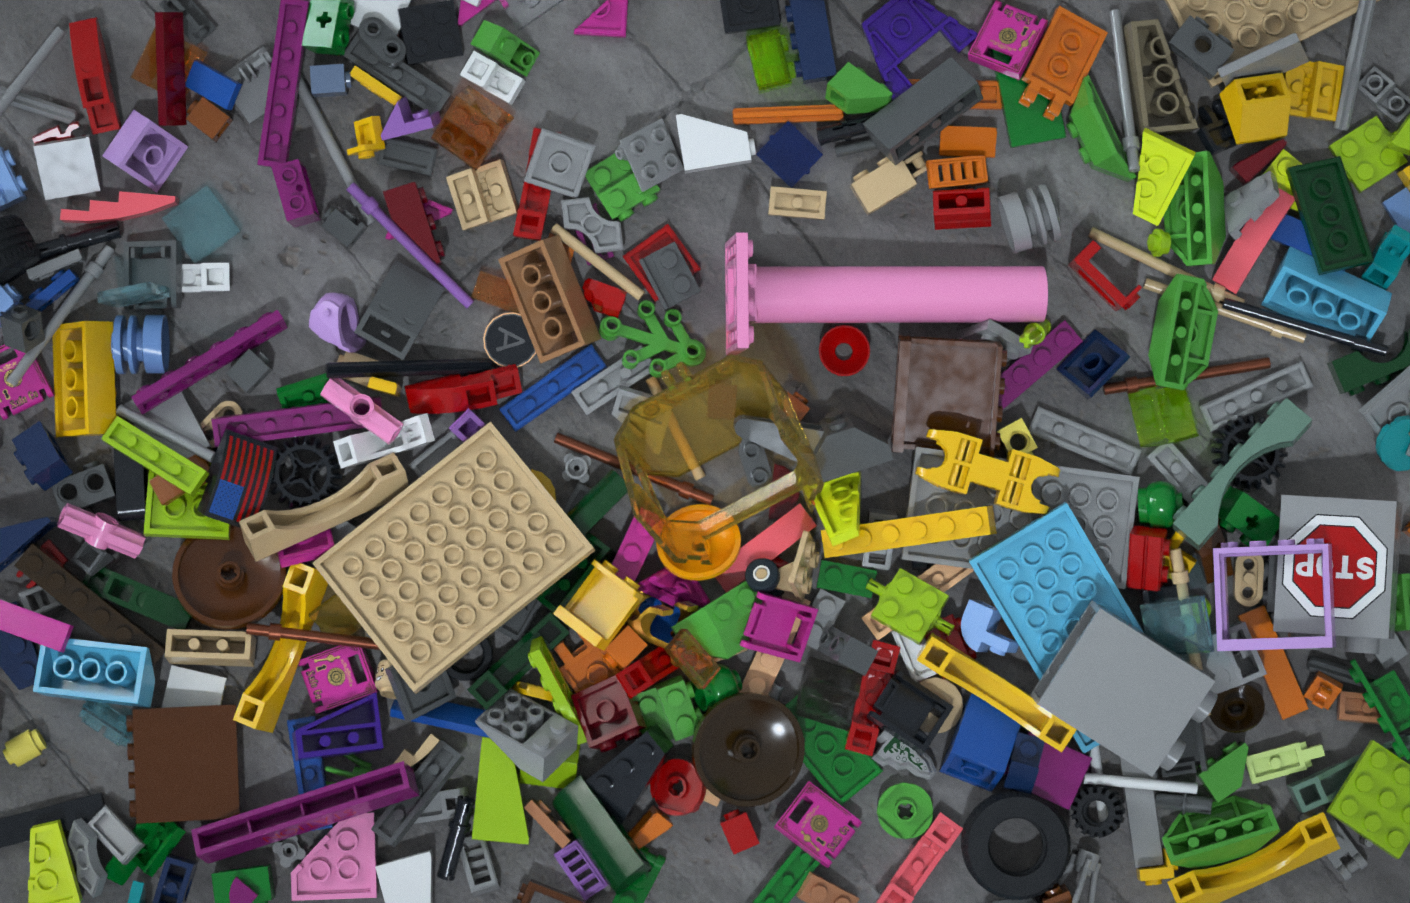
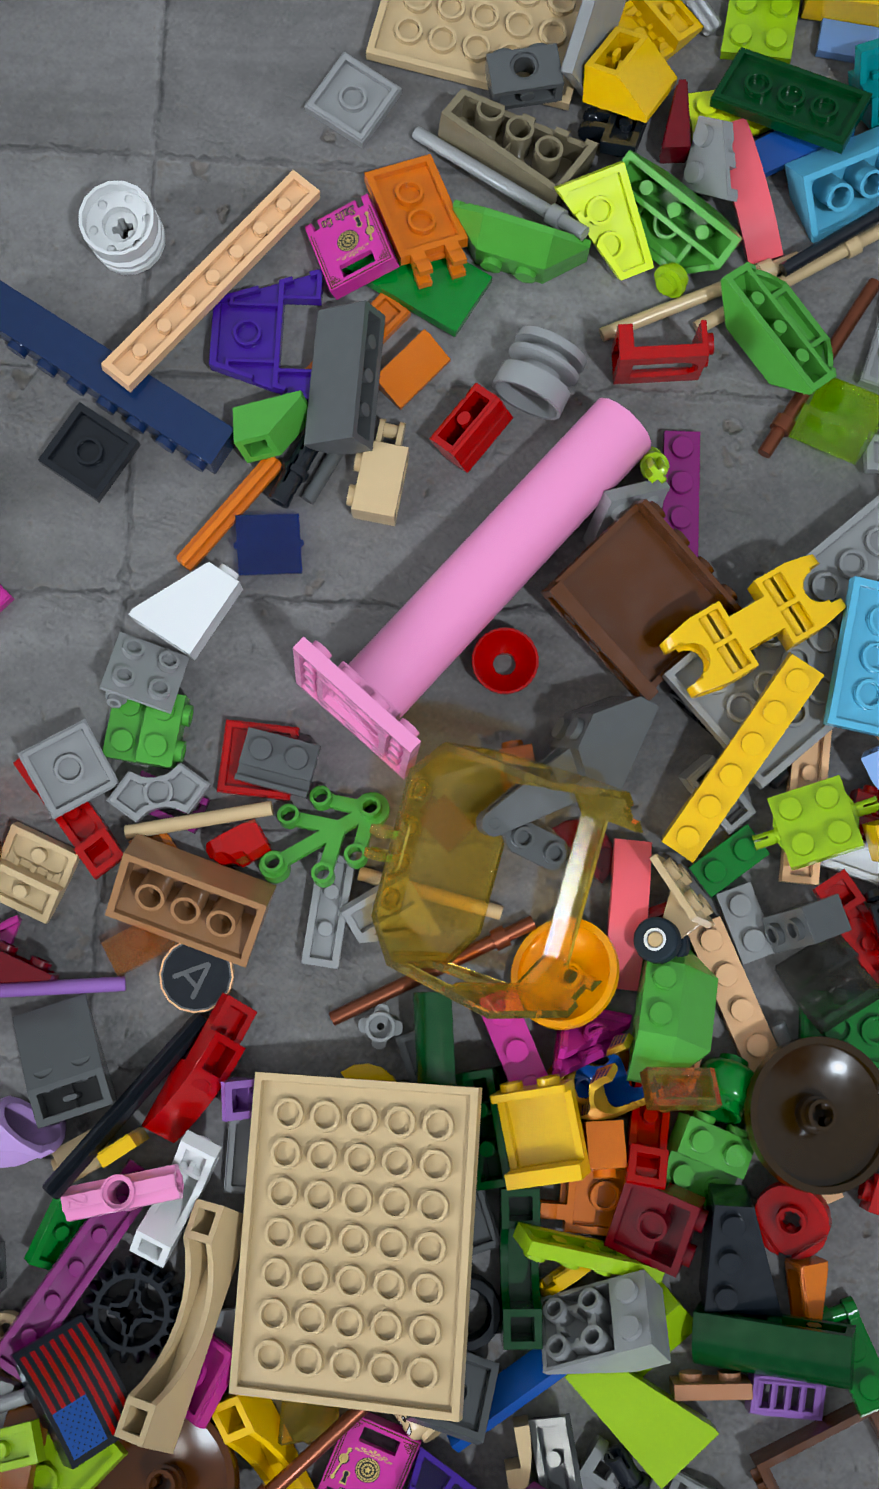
camera: 45 degrees left, 5 degrees down
(553, 388) = (281, 978): blue tile -> none
(769, 60) = (163, 482): clear neon green brick -> none
(772, 624) = (713, 975): dark pink container -> none
(797, 203) = (322, 578): tan plate -> none
(840, 507) = (662, 804): neon yellow wing -> none
(974, 172) = (445, 385): orange slope -> none
(1017, 428) = (732, 562): light yellow brick -> none
(1084, 441) = (796, 516): light grey tile -> none
(1092, 364) = (733, 441): dark blue slope -> none

